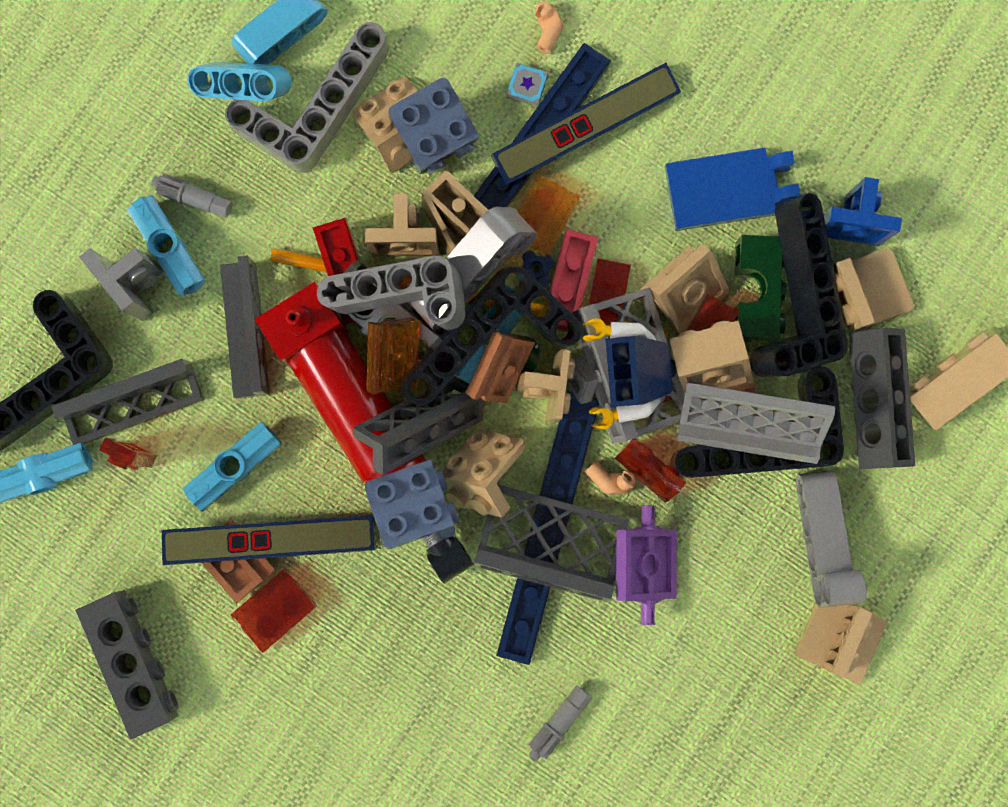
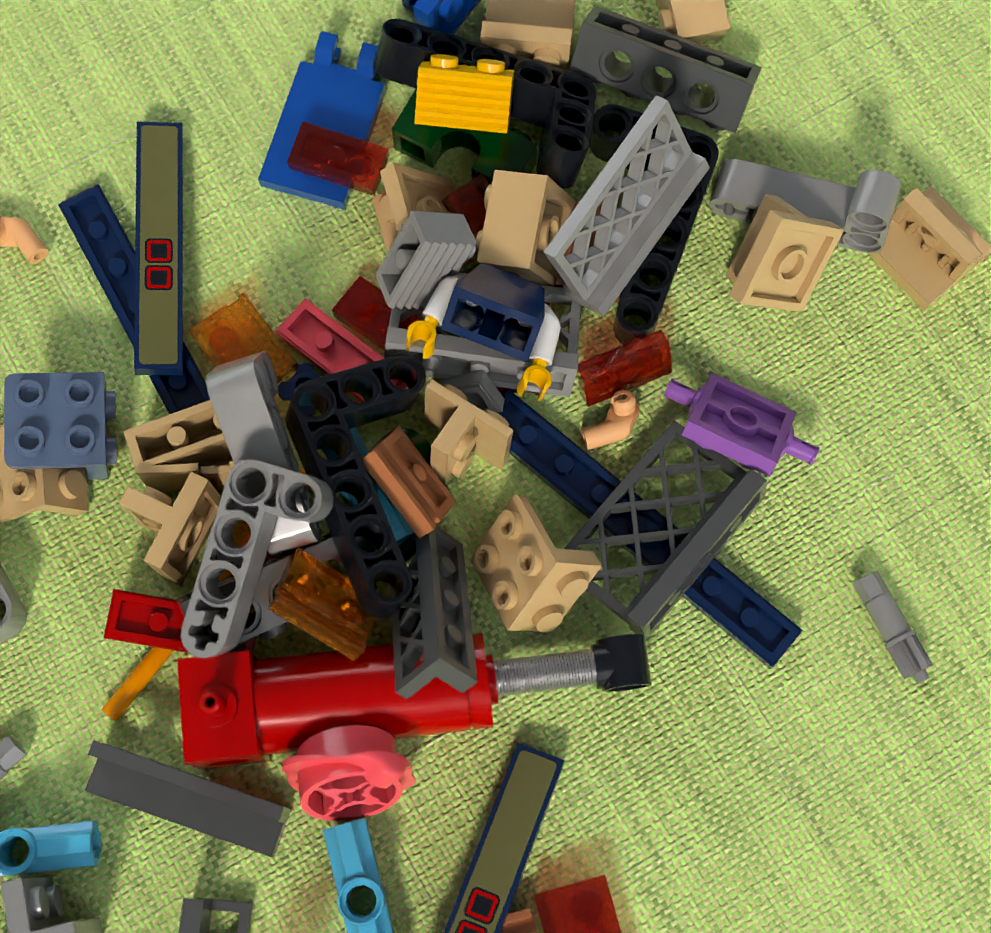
camera: 65 degrees left, 10 degrees down
(299, 421) = (348, 773): none -> coral piece
(411, 505) = (532, 669): sand blue bracket -> none
(527, 84) = (71, 295): tile -> none
(652, 304) = (422, 256): none -> light grey brick
(703, 209) = (338, 158): none -> clear red plate
(777, 540) = (781, 257): none -> tan bracket
(784, 273) = (464, 94): none -> yellow brick

